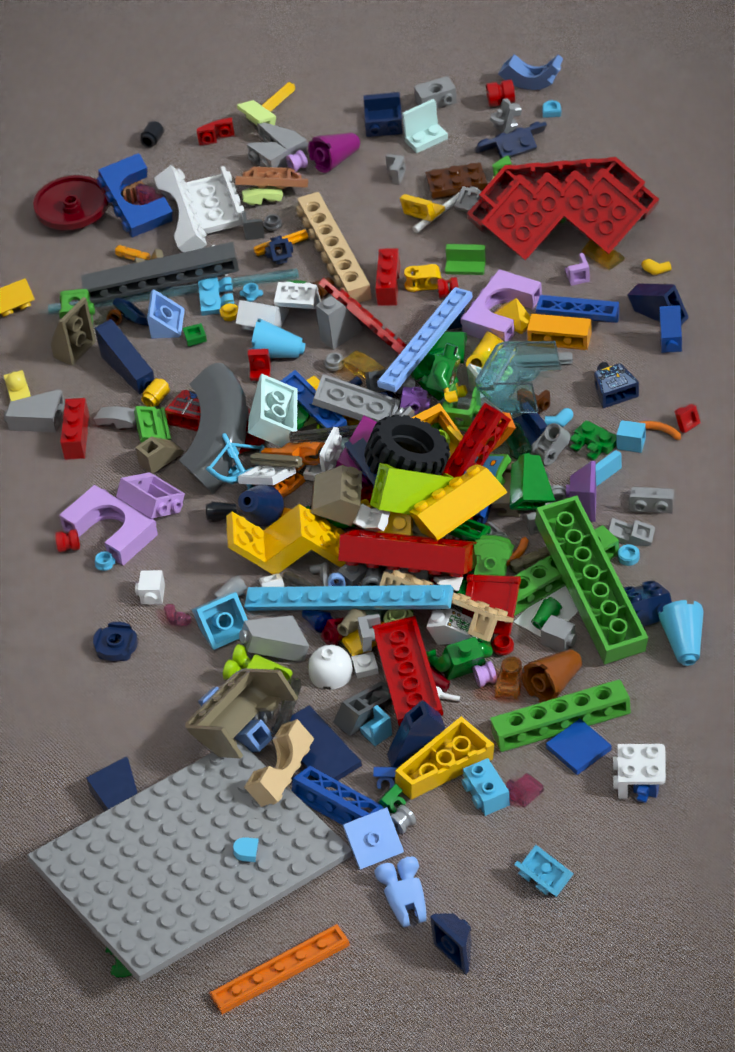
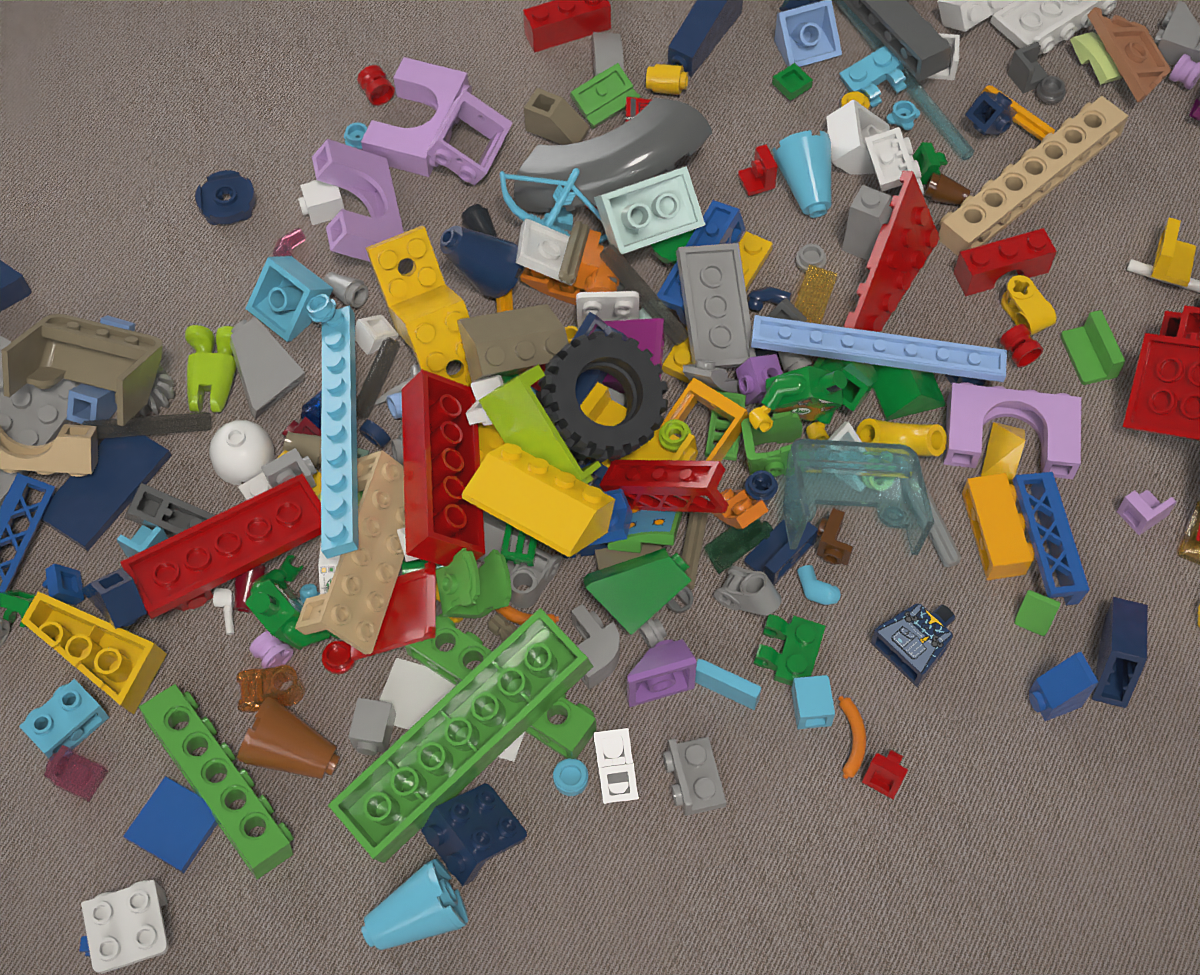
camera: 65 degrees right, 15 degrees up
(198, 560) = (371, 181): none -> lavender arch
(244, 593) = (321, 308): none -> medium azure plate
(547, 608) = (411, 696): green cone -> none
(619, 331) = (1036, 613): none -> bright green slope

